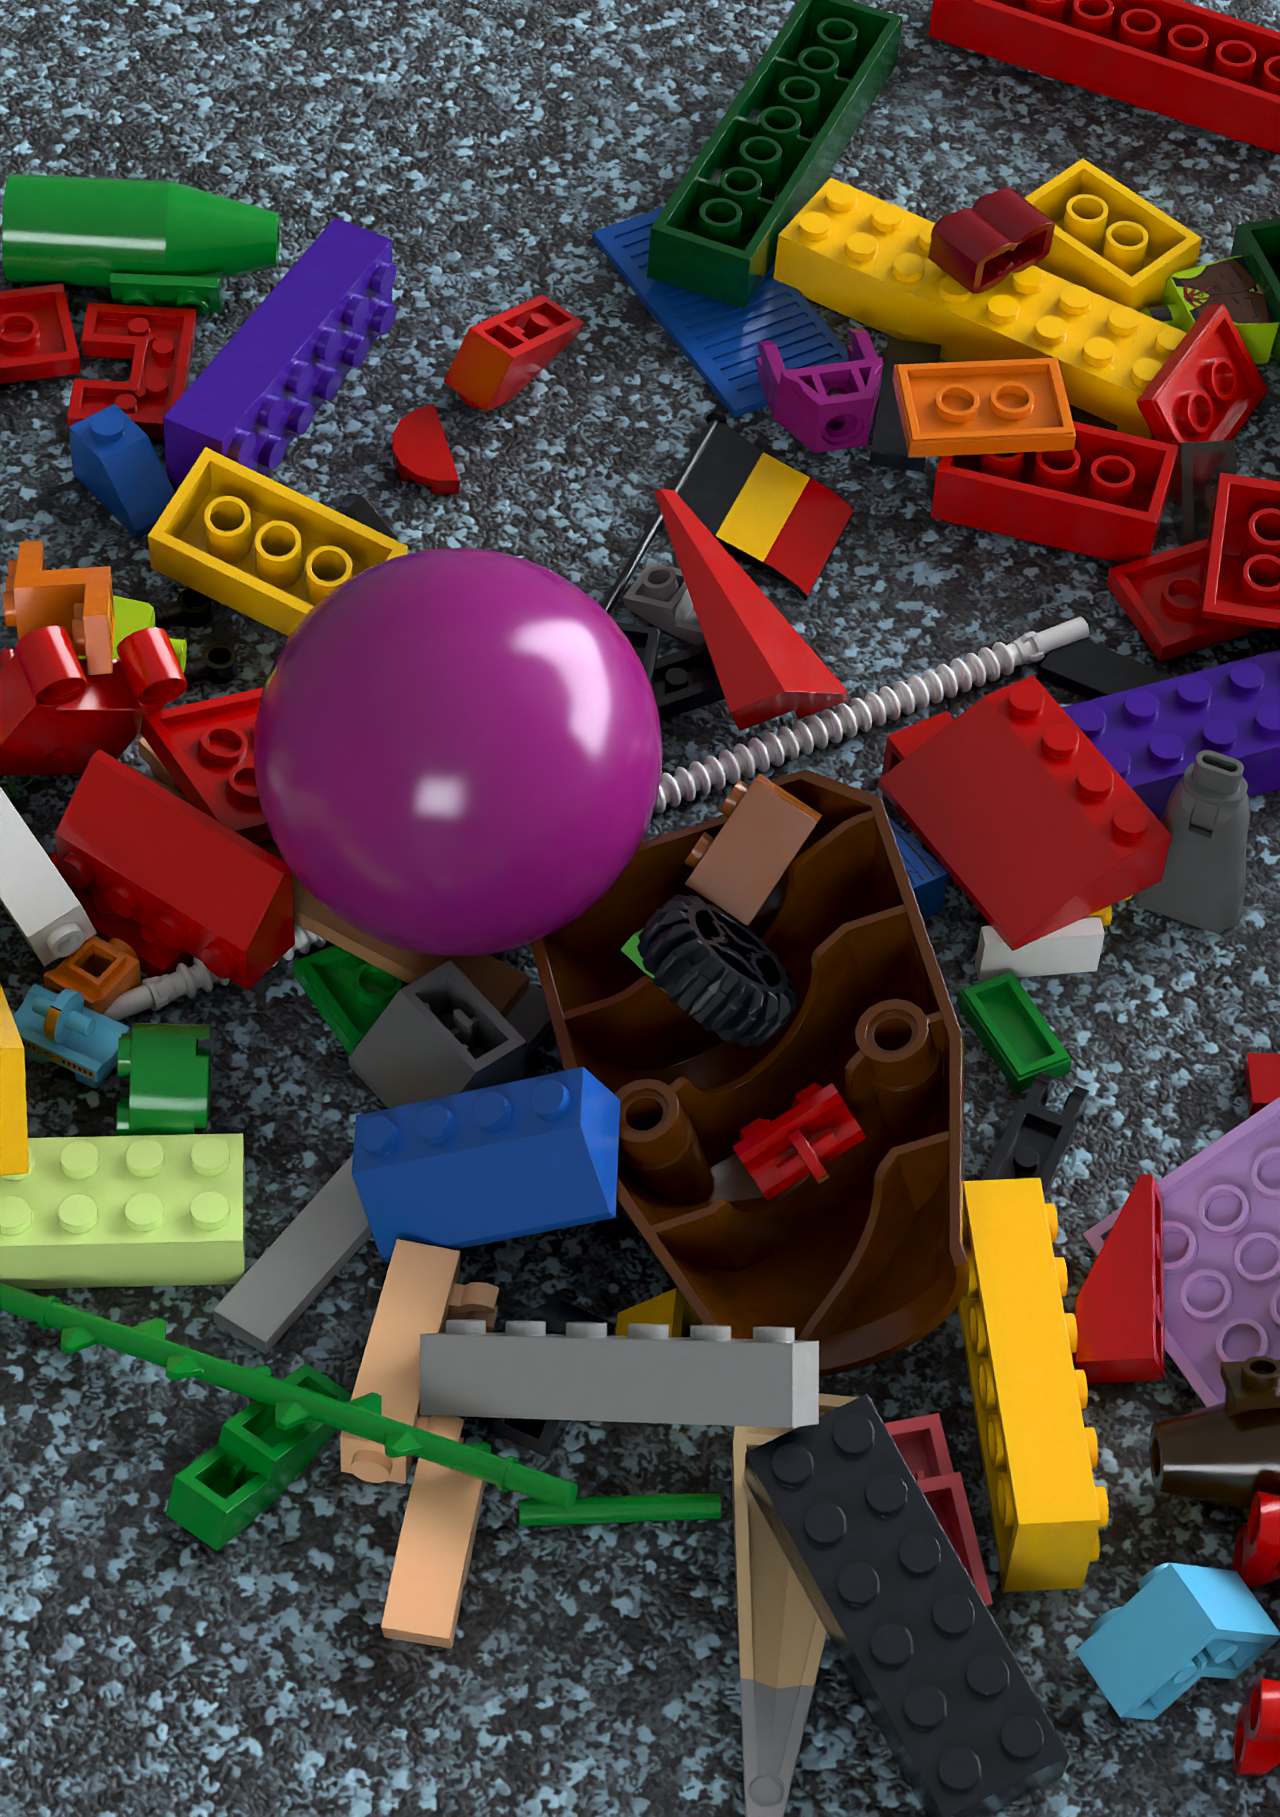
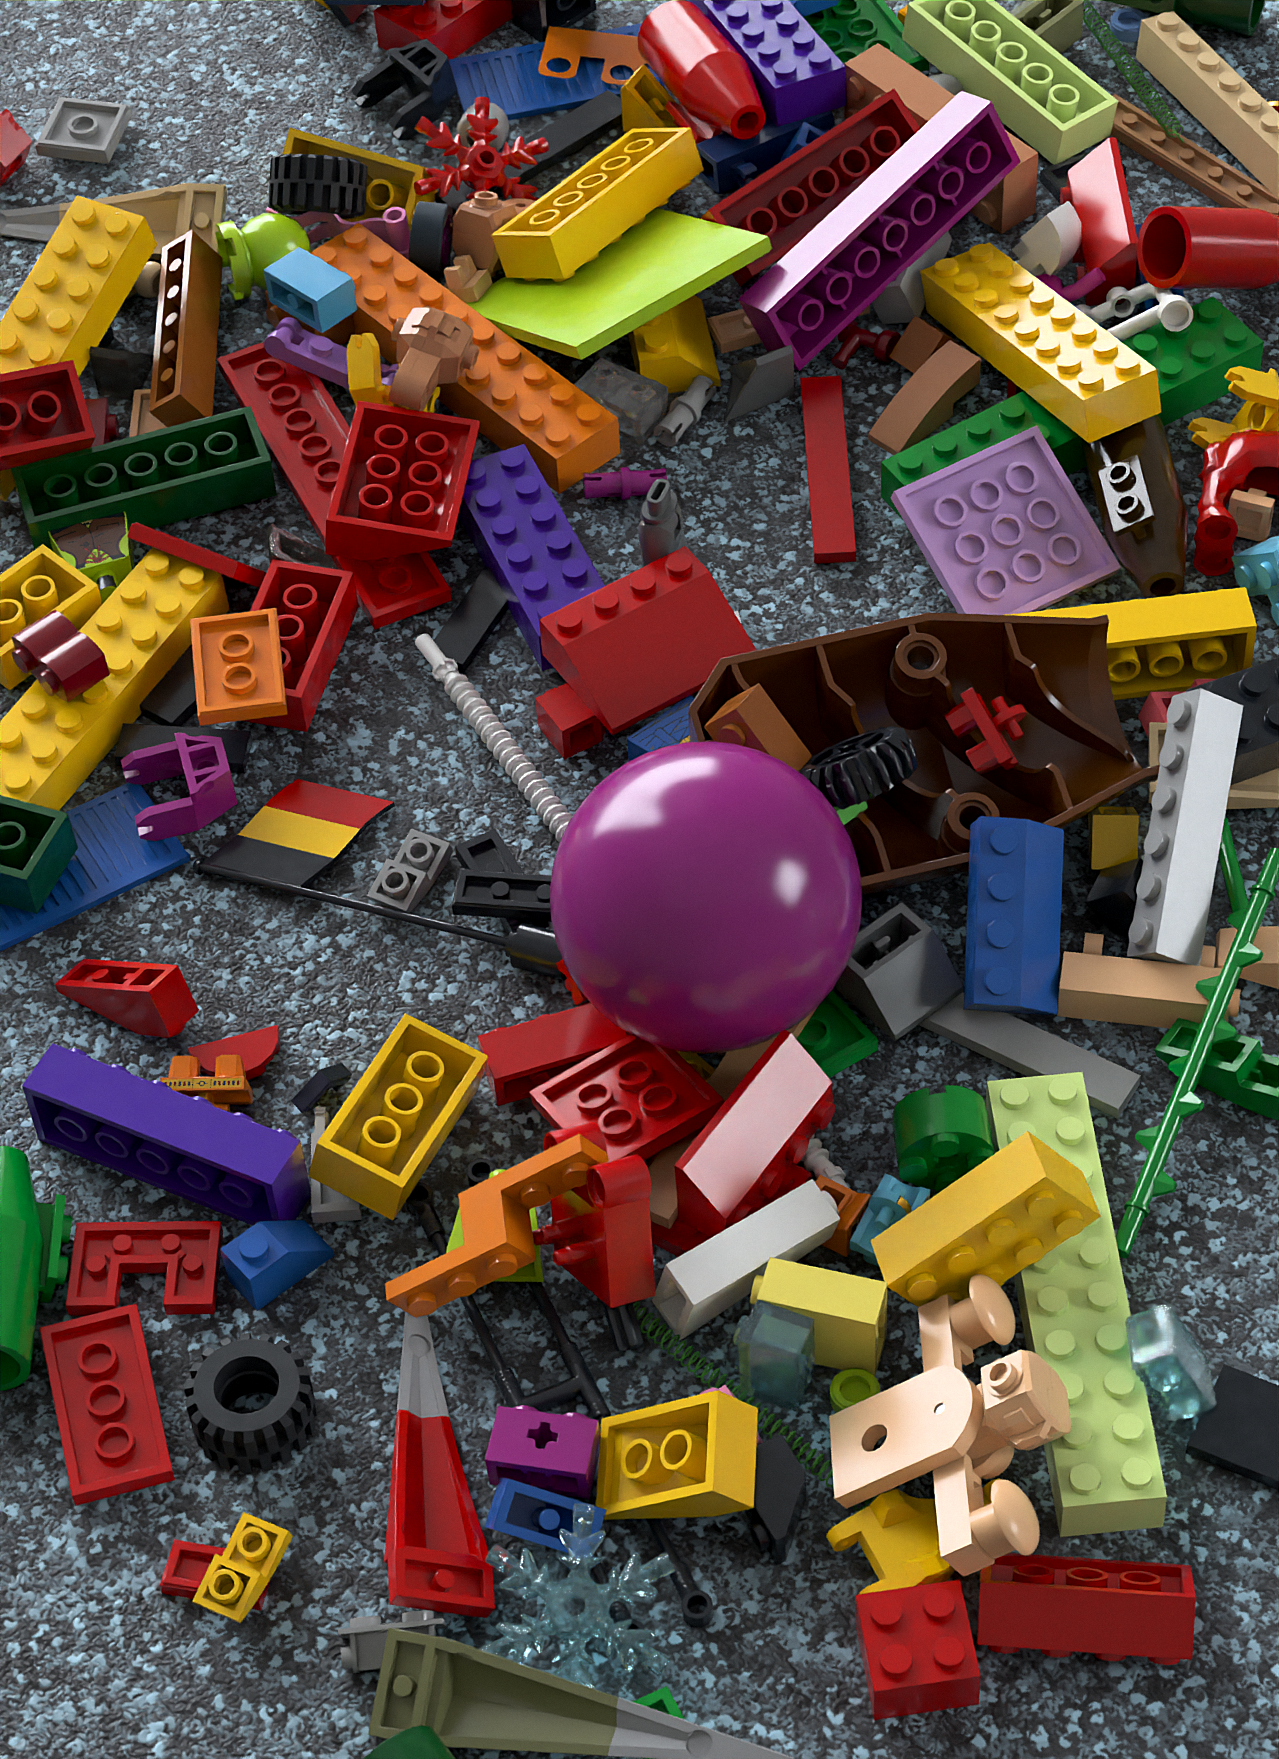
camera: 85 degrees left, 0 degrees up
(367, 414) = (223, 1089): none -> orange hips
(754, 649) = (486, 809): red wedge -> none
(1123, 1296) = (1026, 591): red slope -> none

